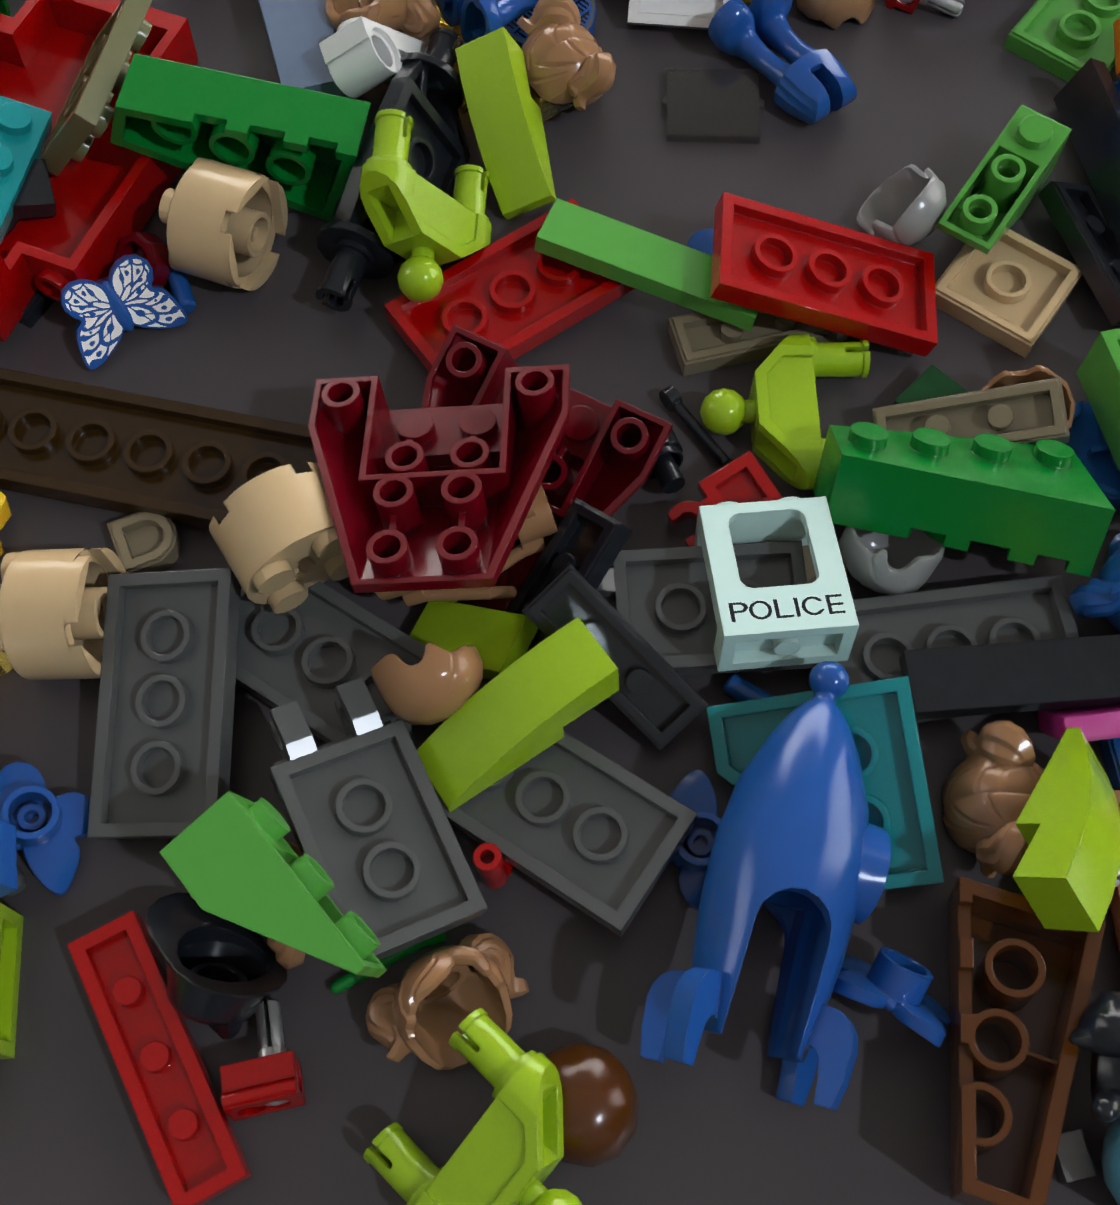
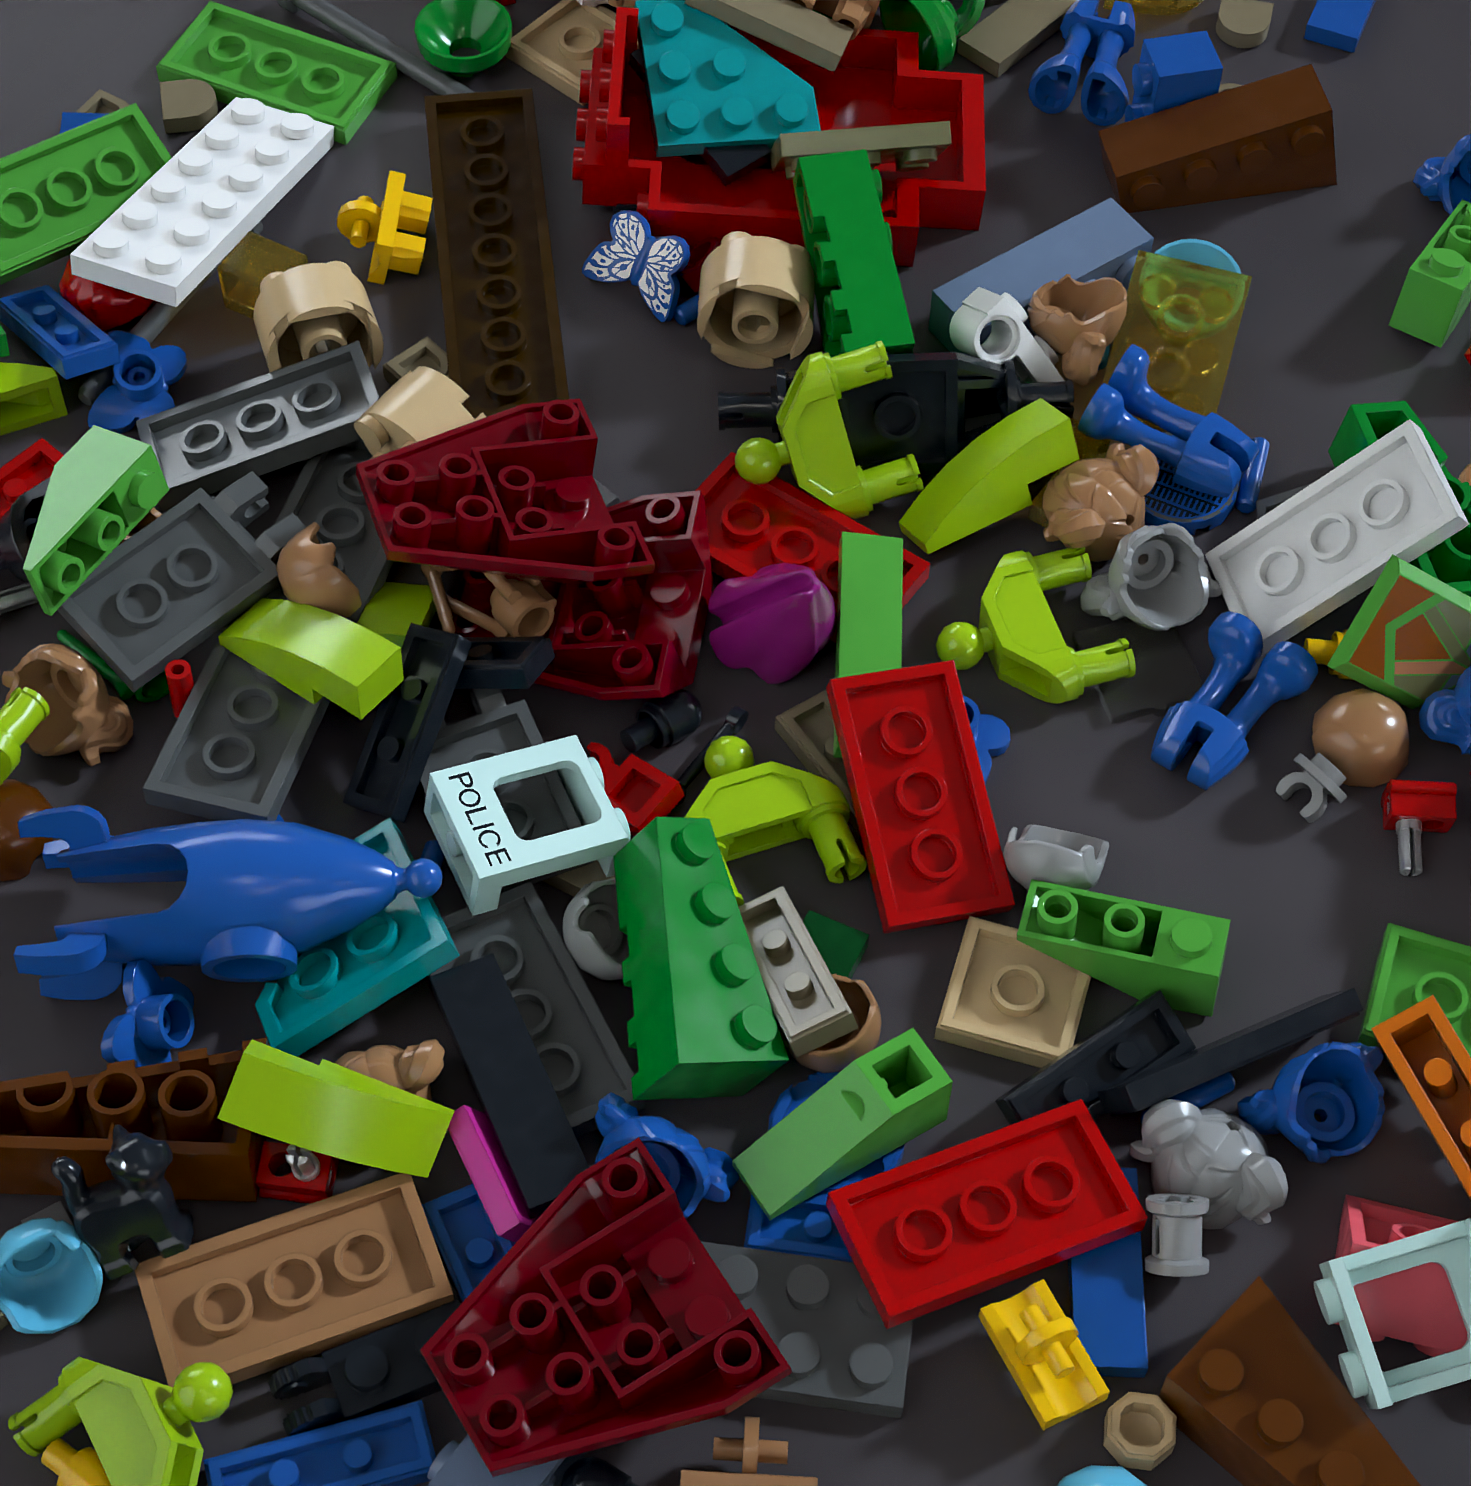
camera: 70 degrees right, 10 degrees down
(598, 315) = (772, 621): none -> magenta hat
(654, 57) = (1153, 580): none -> light grey hair
(662, 162) = (1023, 635): none -> lime connector
(872, 24) = (1320, 778): none -> light grey plate

